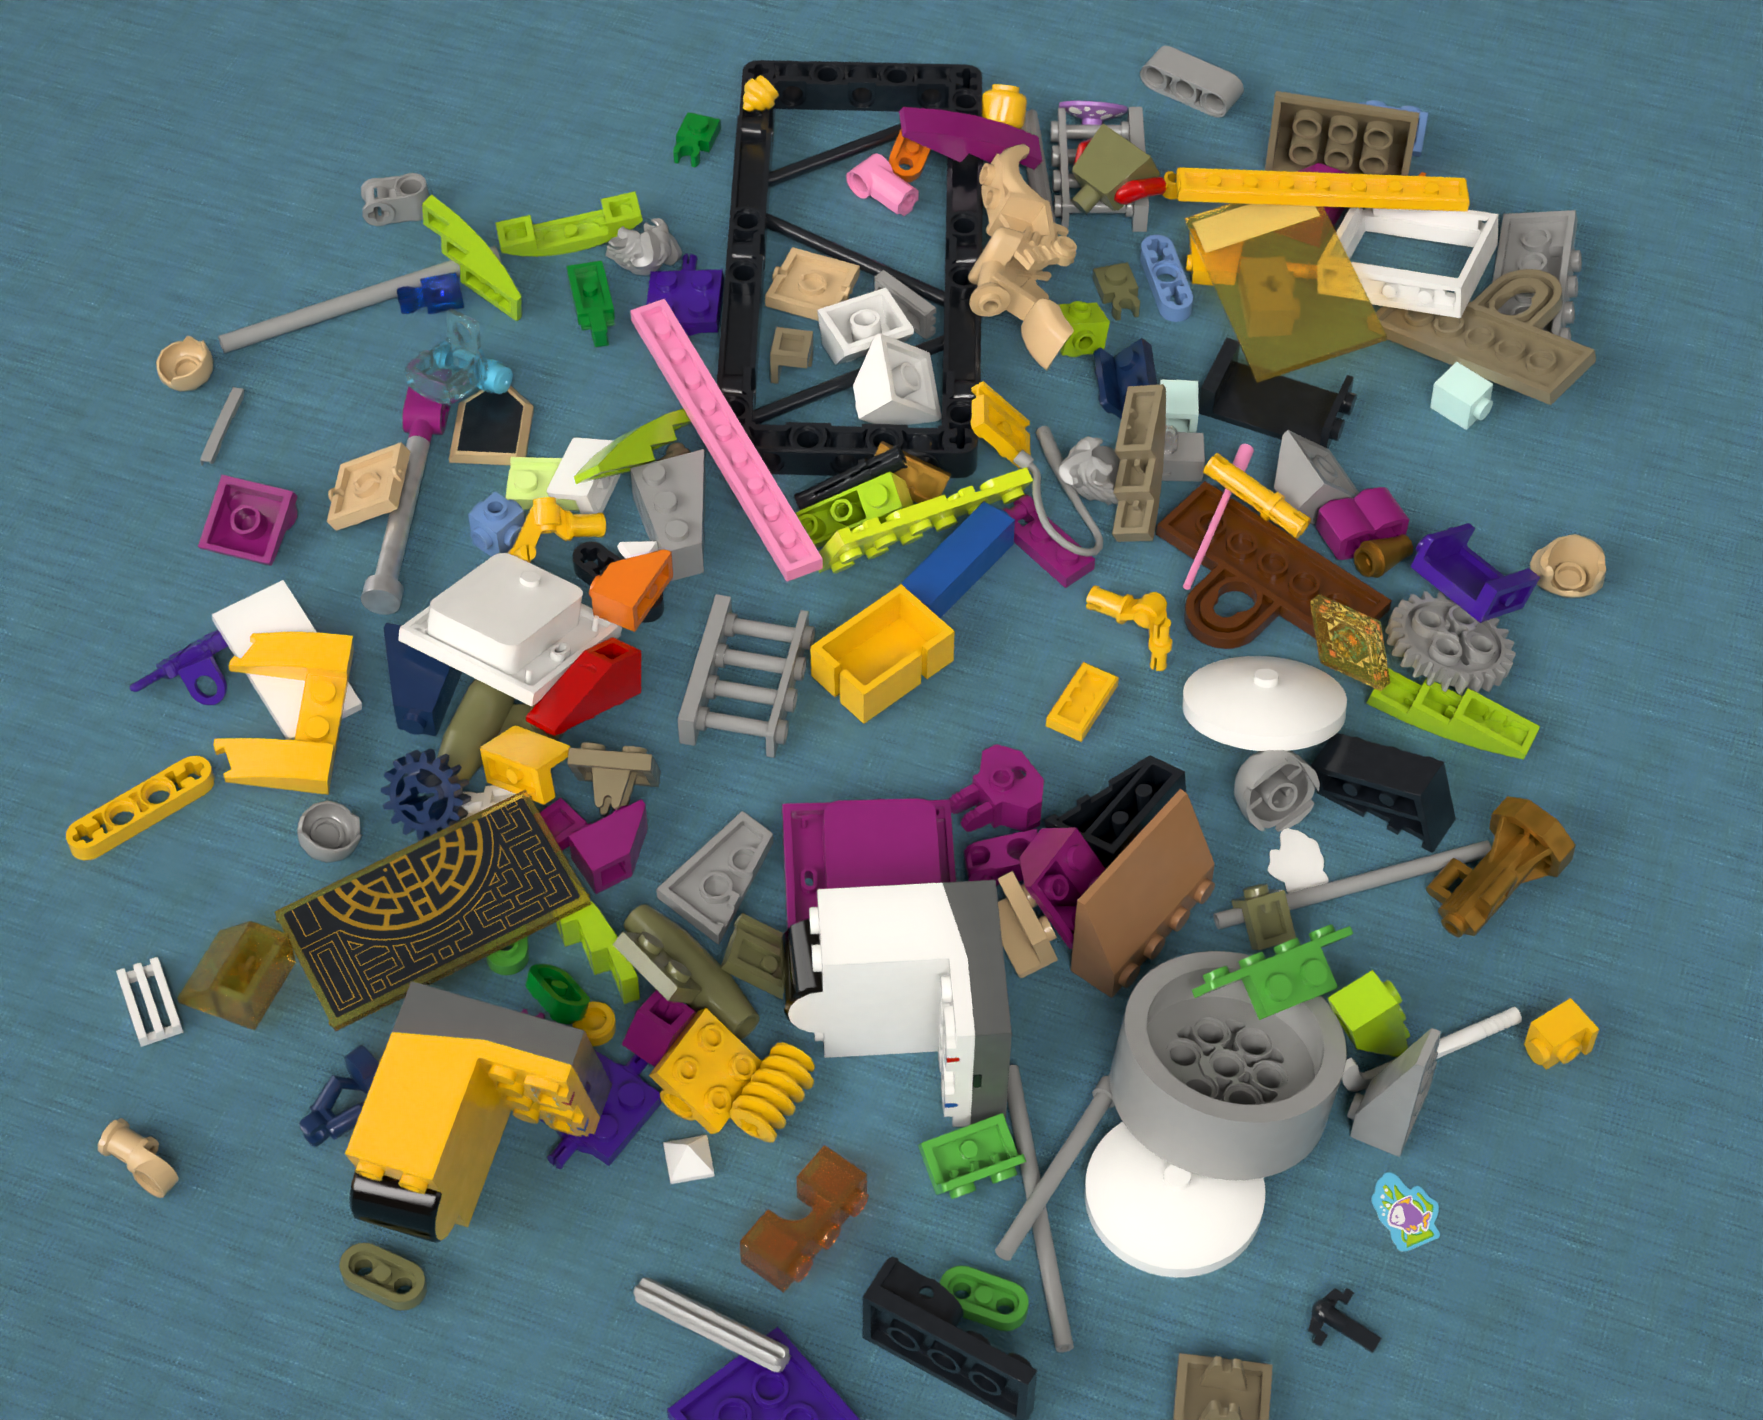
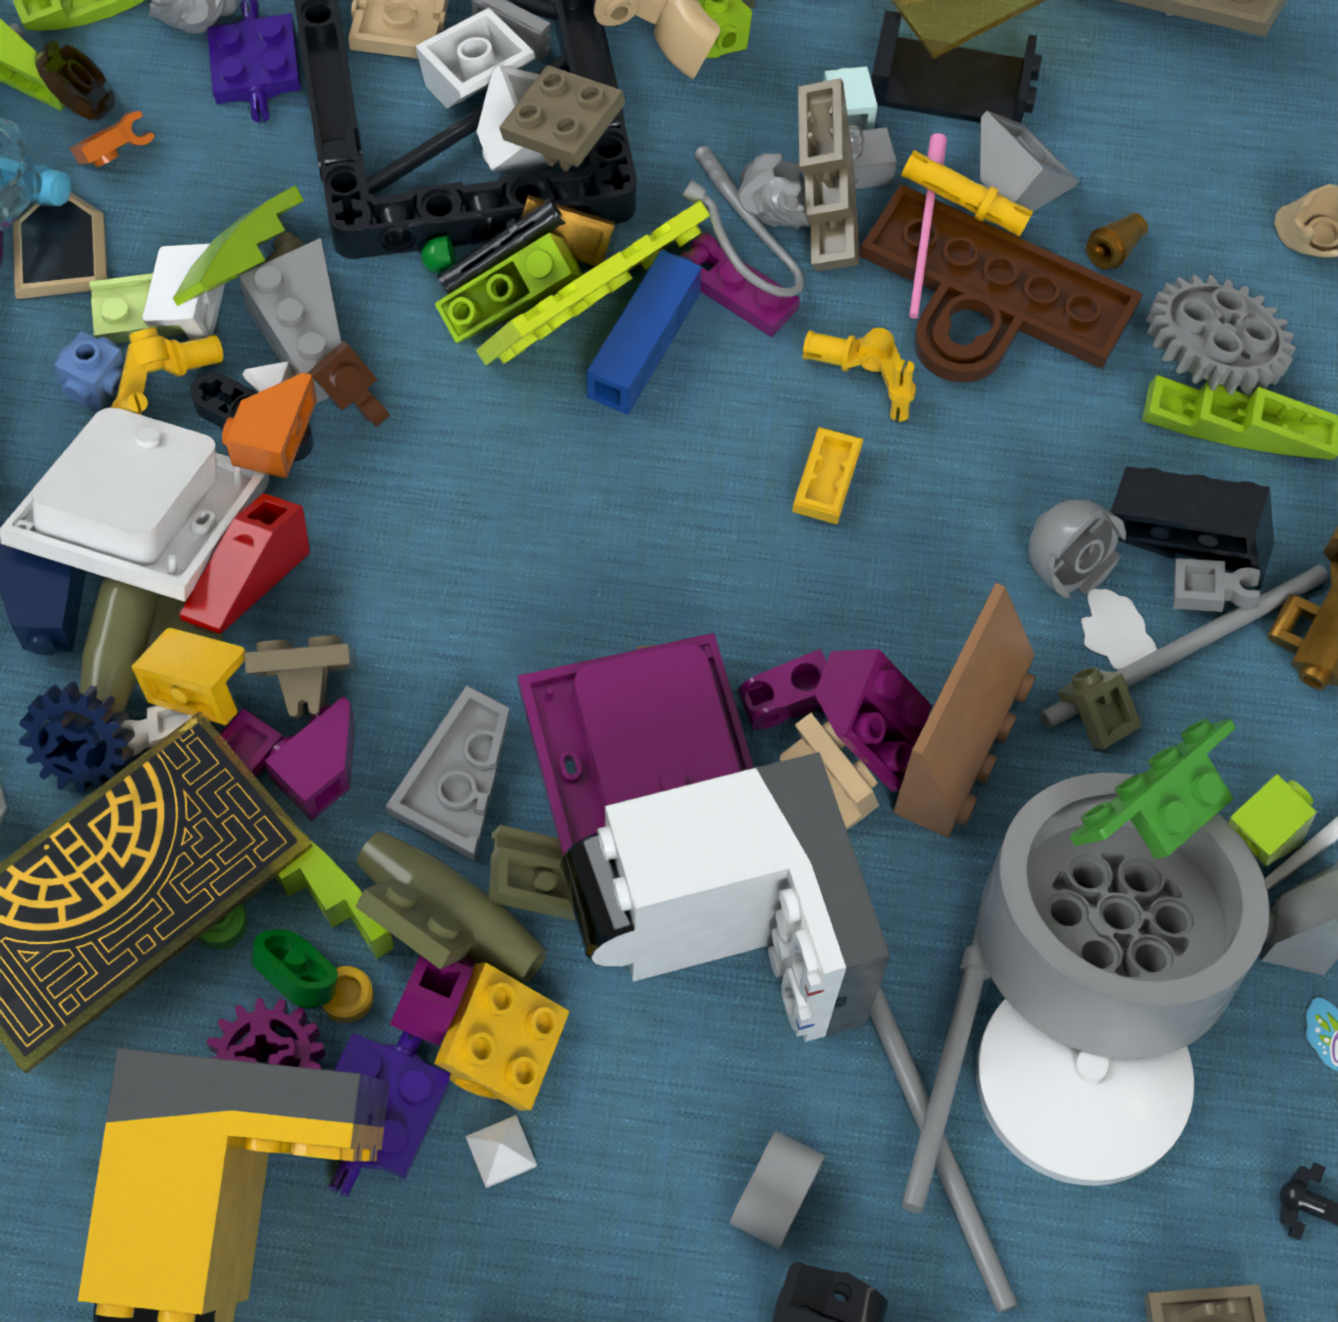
camera: 15 degrees left, 10 degrees up
(322, 1121) = (77, 1126): dark blue piece -> none
(532, 297) = (74, 80): none -> dark brown tile
(543, 353) = (102, 146): none -> orange plate
(592, 299) = (145, 71): green hinge -> none
(699, 562) = (347, 381): none -> reddish brown plate
(715, 654) = (389, 532): light grey fence -> none
(727, 441) = (347, 224): bright pink plate -> none
(773, 1092) = (585, 1047): yellow piece -> none
(784, 1248) = (645, 1254): clear orange arch -> none
(790, 349) = (393, 98): dark tan panel -> none
(800, 478) = (438, 254): none -> green hinge
(882, 653) = (586, 457): yellow piece -> none
(900, 1222) = (777, 1189): none -> light grey axle
(922, 381) = (562, 116): none -> dark tan plate
(970, 1155) = (842, 1084): bright green bracket -> none
(986, 1296) = (898, 1265): bright green plate -> none
(999, 423) = (655, 152): yellow plate -> none
(1001, 792) = (767, 606): magenta hinge -> none
(1124, 808) = (915, 610): black wedge -> none
(1128, 368) = (779, 72): dark blue bracket -> none
(1264, 703) = (1039, 445): white dish -> none
(1350, 642) = (1119, 354): clear yellow tile -> none
(1359, 519) = (1084, 203): magenta brick -> none
(1382, 838) = (1206, 586): none -> light grey plate
(1462, 396) = (1155, 40): light aqua brick -> none
(1468, 578) = (1220, 253): dark purple panel -> none

